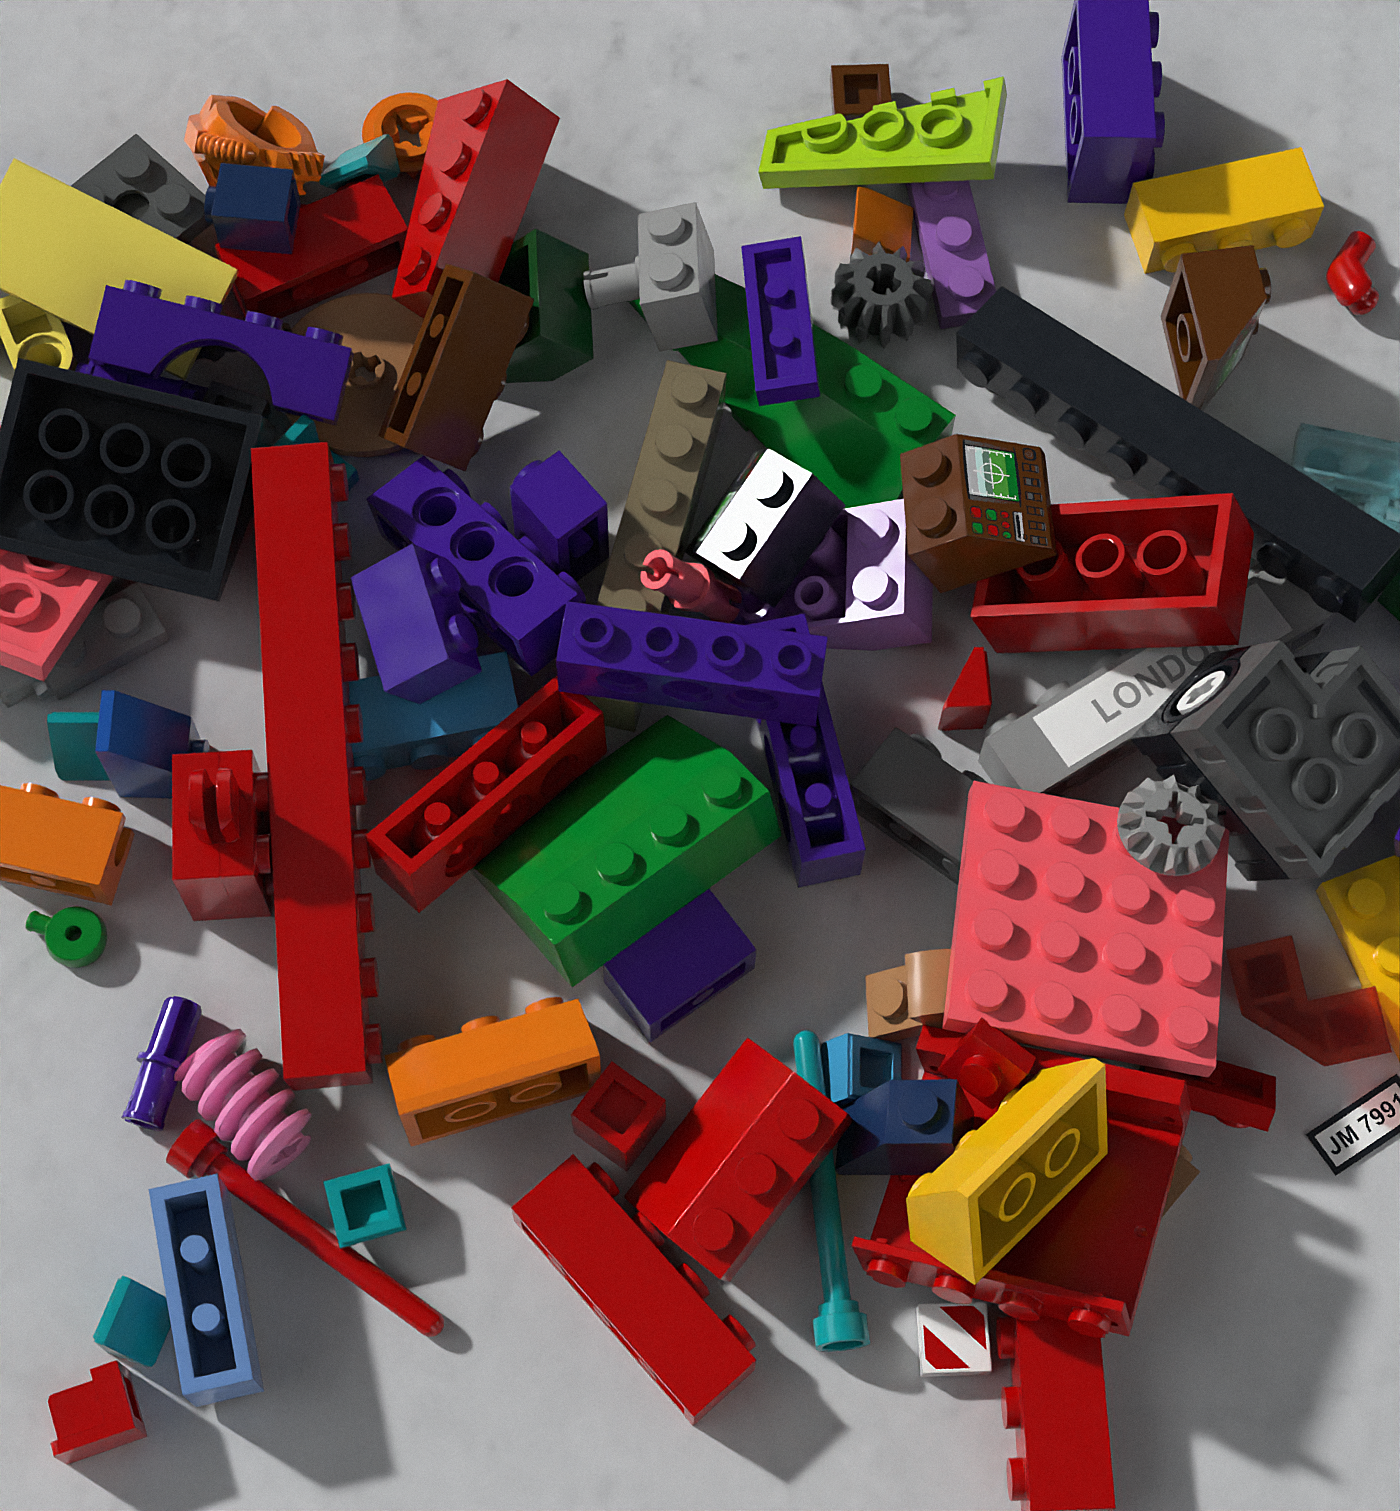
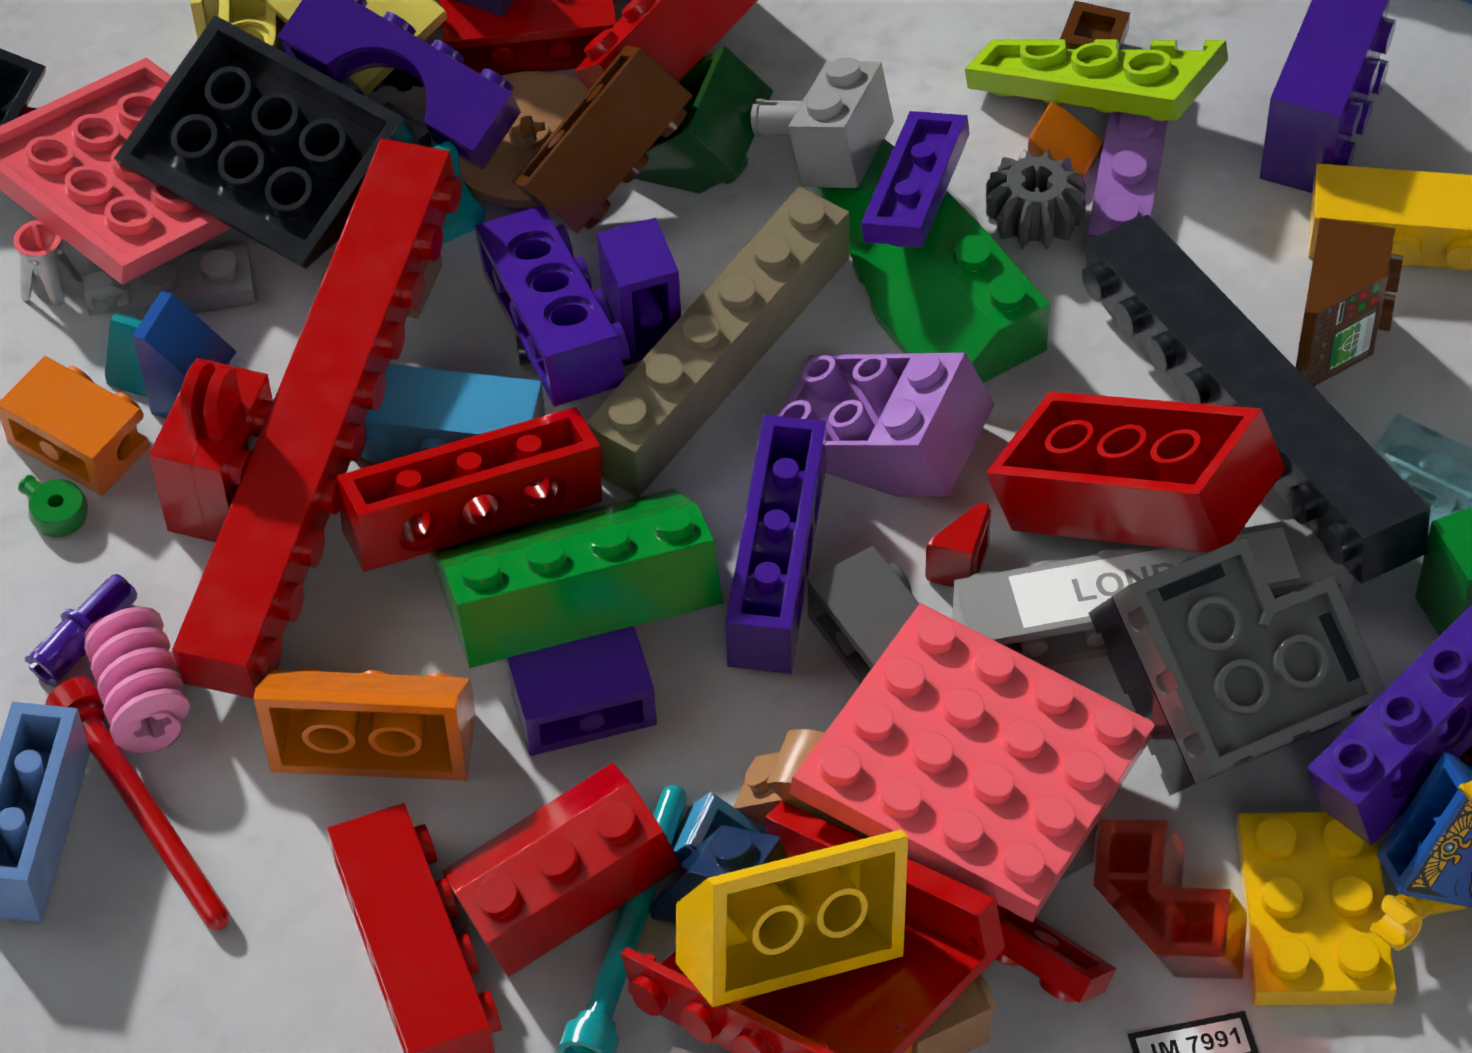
camera: 25 degrees right, 15 degrees down
(365, 1205) = (202, 793): teal slope -> none
(416, 624) = (463, 323): dark purple brick -> none
(619, 1116) = (465, 794): red panel -> none
(690, 586) = (732, 372): coral pin -> none
(690, 663) = (694, 420): dark purple brick -> none
(766, 525) = (826, 343): black slope -> none
(975, 508) = (1025, 378): reddish brown slope -> none
(987, 1063) = (815, 825): red plate -> none
(1150, 839) = (1104, 712): light grey gear -> none

